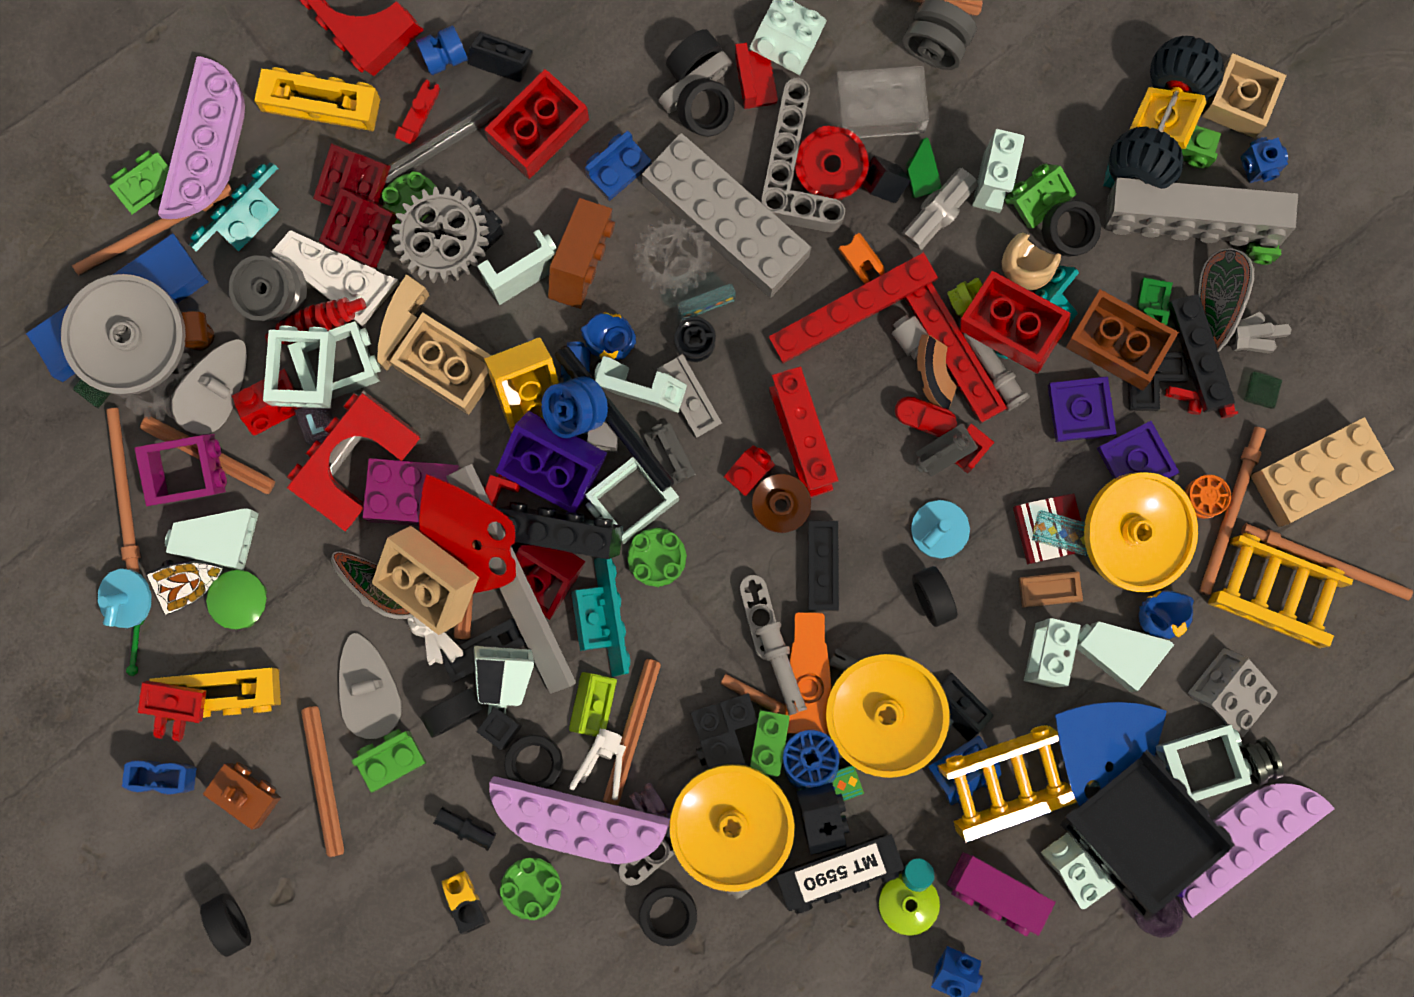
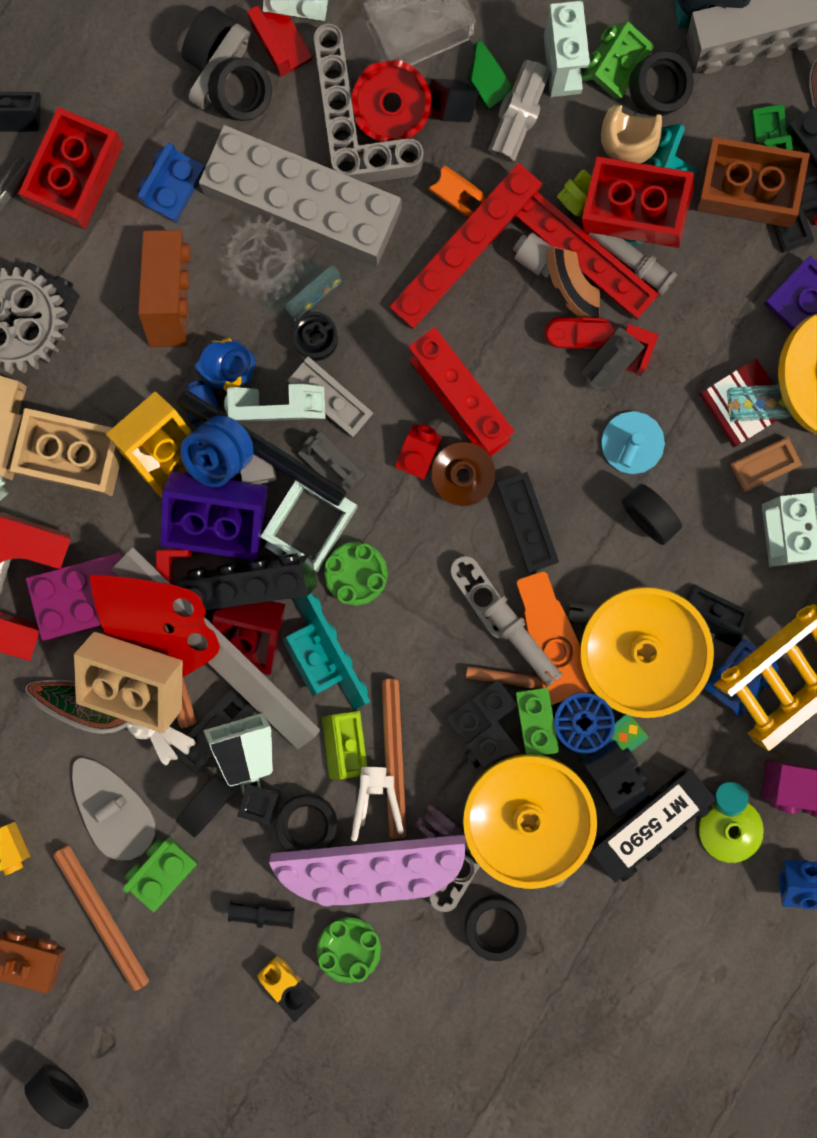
camera: 10 degrees left, 5 degrees up
(522, 273) = (112, 331): light aqua panel -> none
(1081, 409) = (735, 268): dark purple plate -> none

